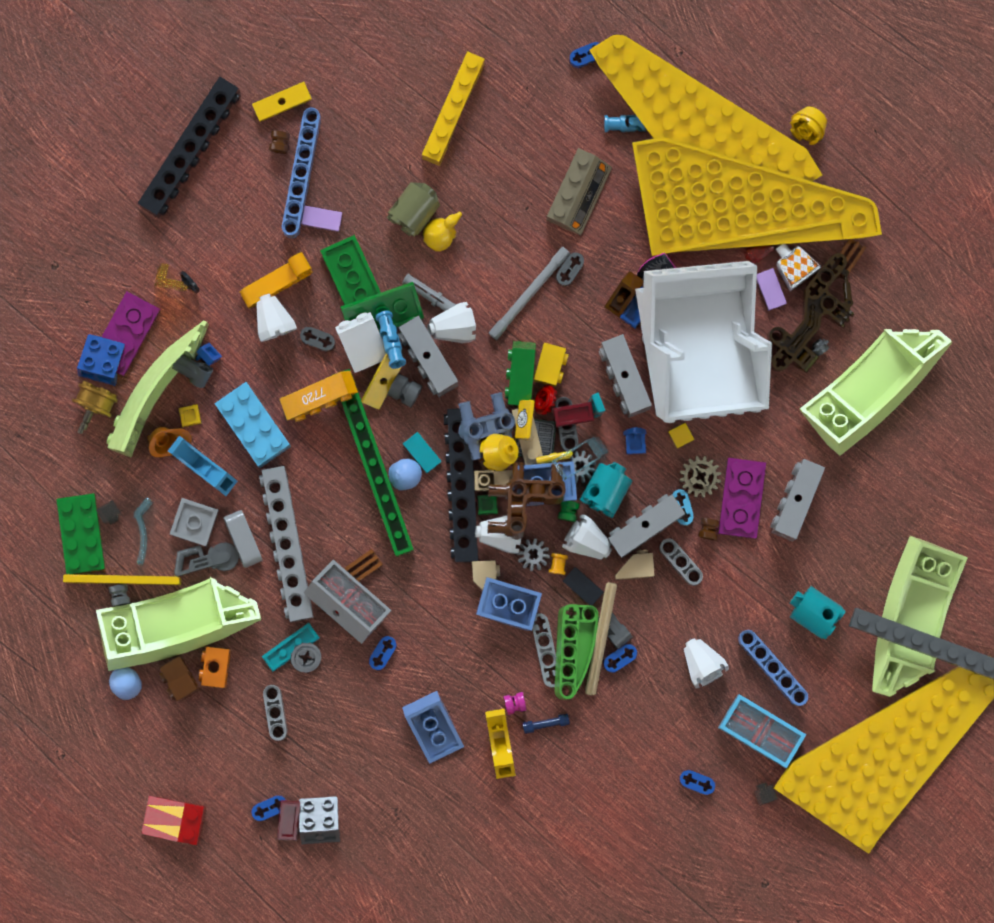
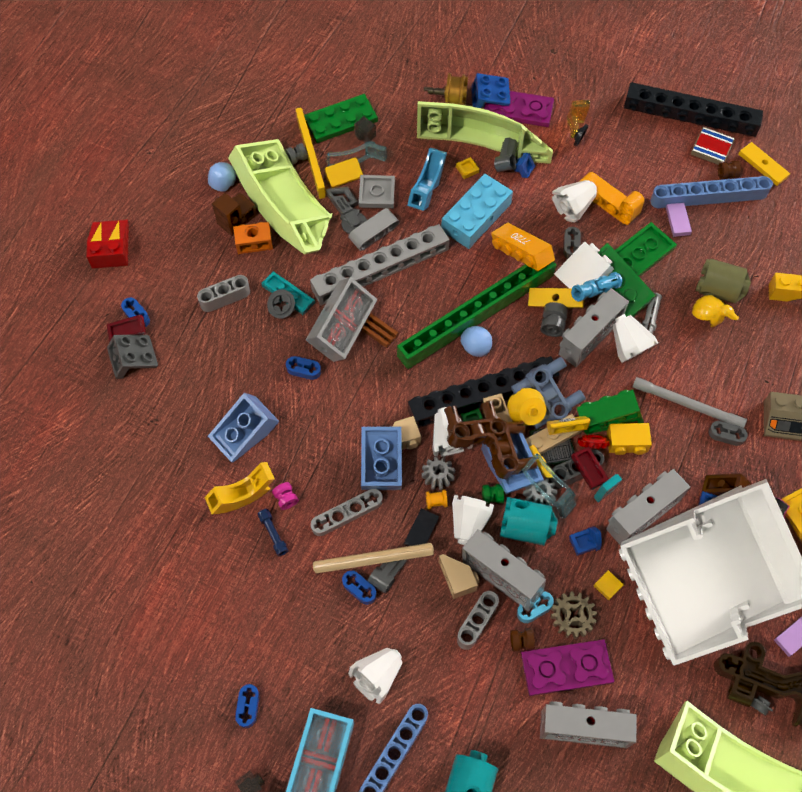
camera: 75 degrees right, 20 degrees down
(158, 550) = (343, 172): none -> yellow slope
(163, 438) = (440, 143): orange piece -> none
(241, 144) = (712, 146): none -> tile
(422, 452) = (502, 352): teal tile -> none
(580, 644) = (362, 539): bright green beam -> none

